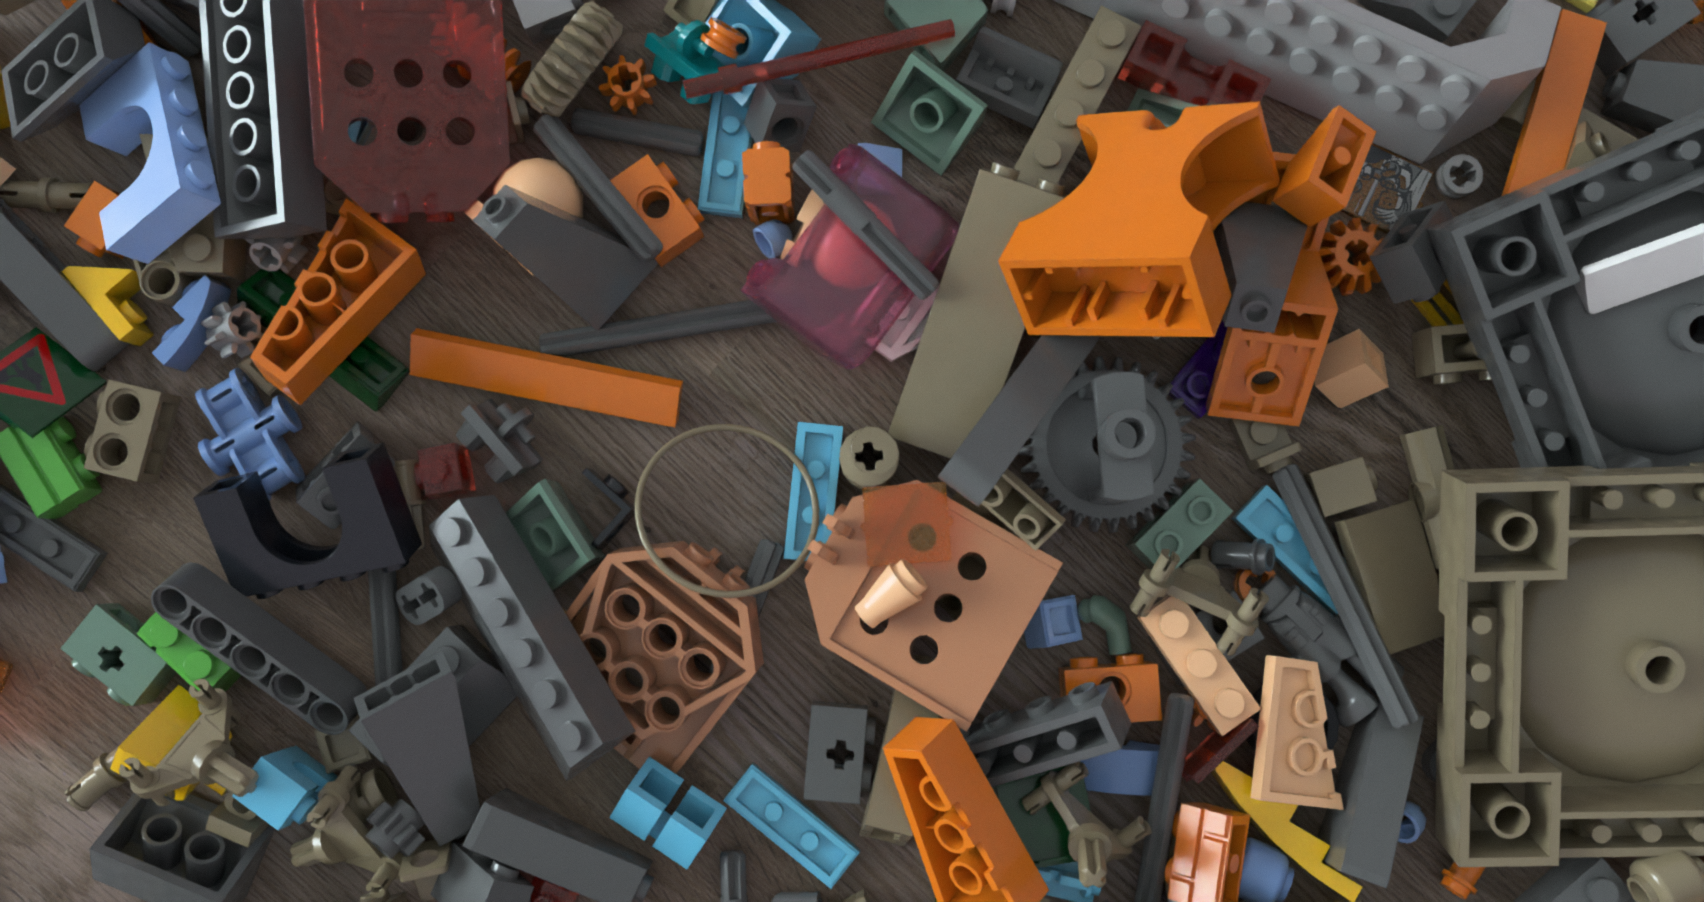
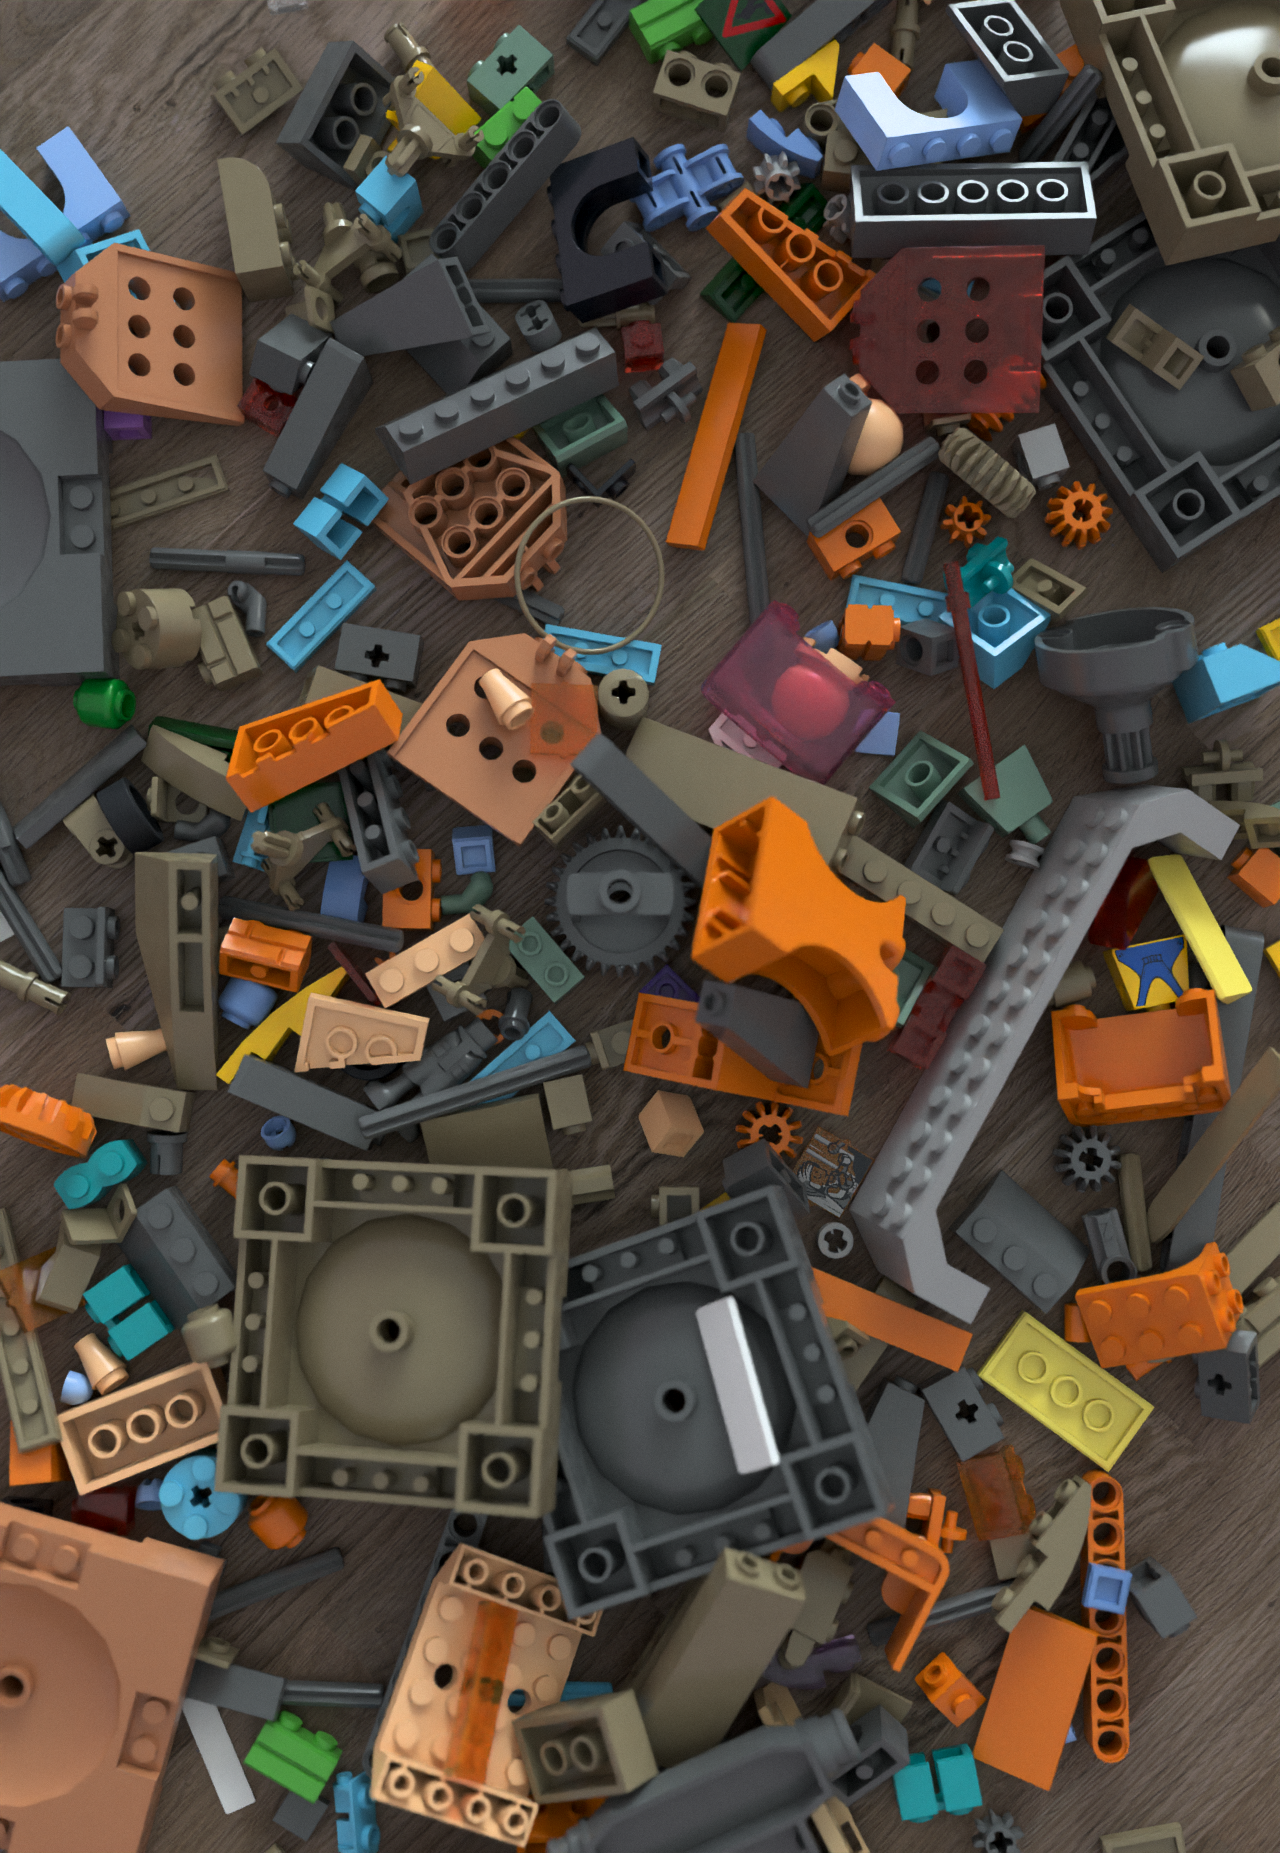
camera: 85 degrees right, 0 degrees up
(395, 829) = (347, 286): dark grey gear -> none
(723, 38) = (996, 601): orange bush -> none
(865, 224) = (819, 702): dark grey axle -> none
(1325, 168) = (838, 1092): orange slope -> none

